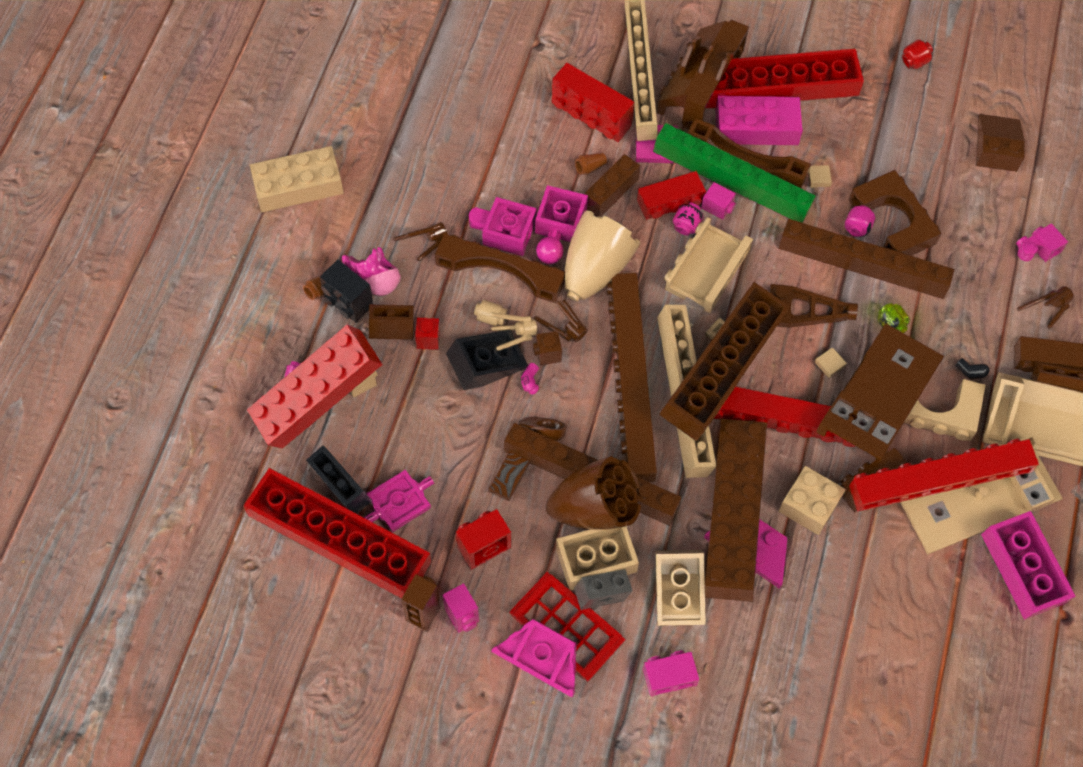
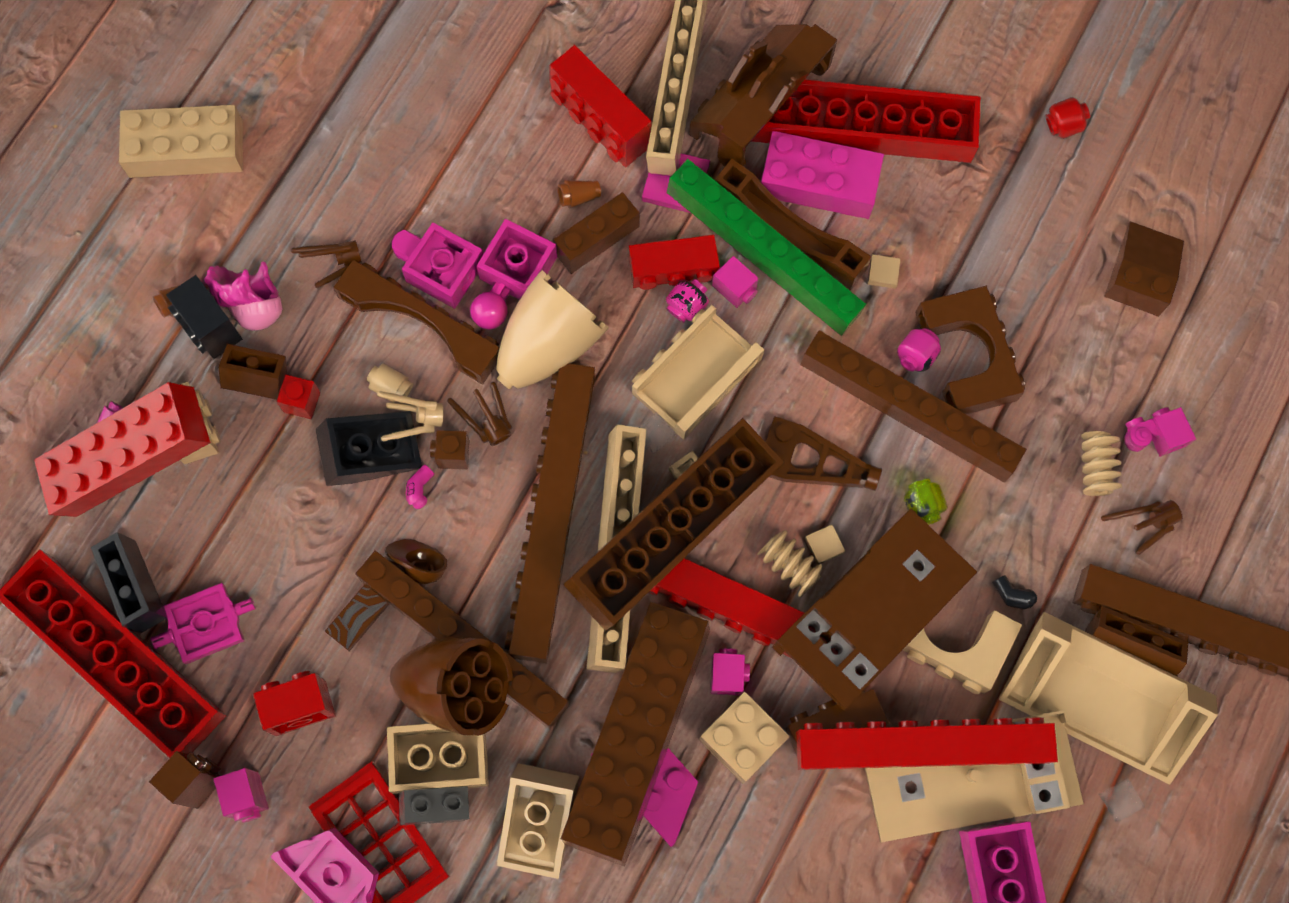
camera: 10 degrees right, 10 degrees up
(788, 460) = (729, 672): none -> dark pink brick
(811, 376) = (792, 562): none -> tan piece
(1007, 271) = (1099, 463): none -> tan piece

